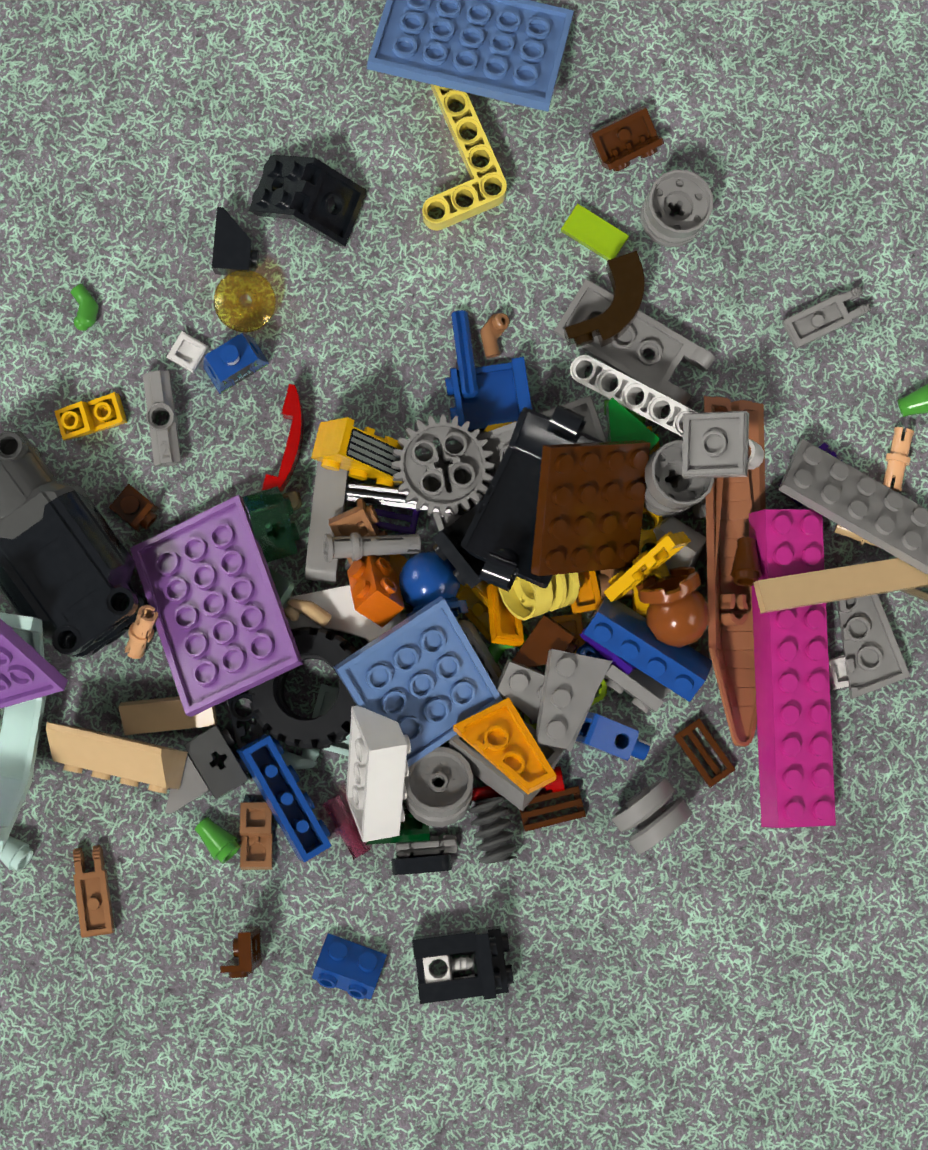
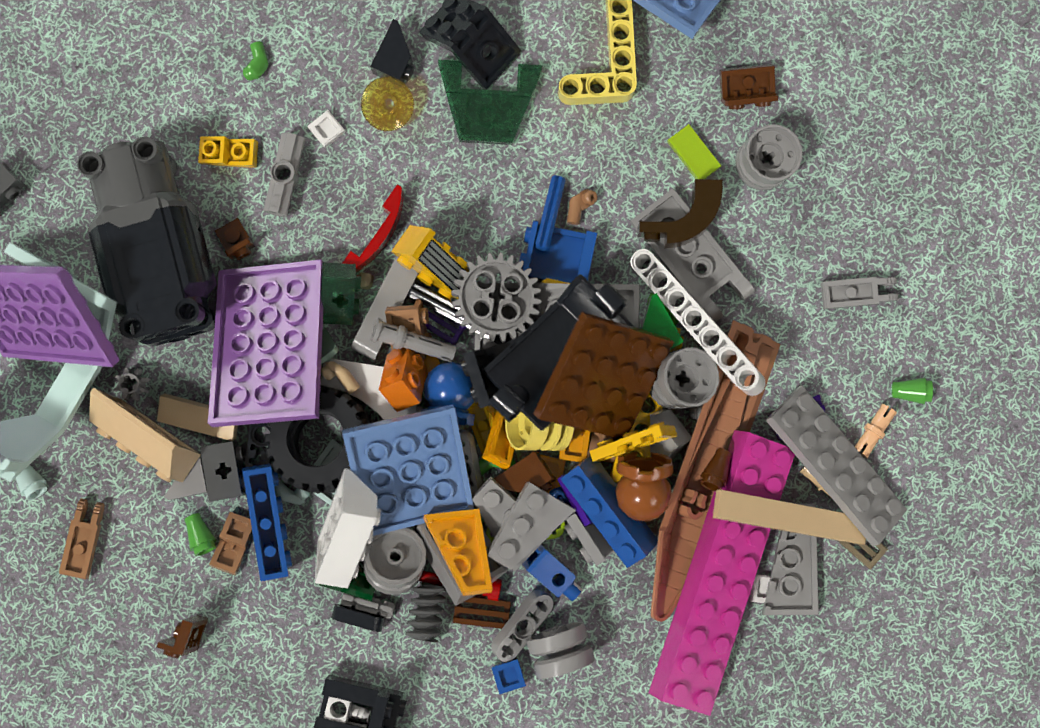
camera: 20 degrees right, 0 degrees up
(91, 706) = (138, 388): none -> light grey gear
(141, 632) = (200, 342): light nougat pin -> none
(234, 362) = (360, 149): blue torso -> none
(345, 827) = (307, 563): clear pink pin -> none
(348, 967) = (267, 679): blue bracket -> none
(357, 272) = (488, 114): none -> clear green wing
(606, 865) = (508, 676): none -> blue plate
(611, 799) = (516, 645): none -> light grey beam
(715, 444) = (727, 364): light grey tile -> none
(715, 747) = (618, 590): reddish brown tile -> none

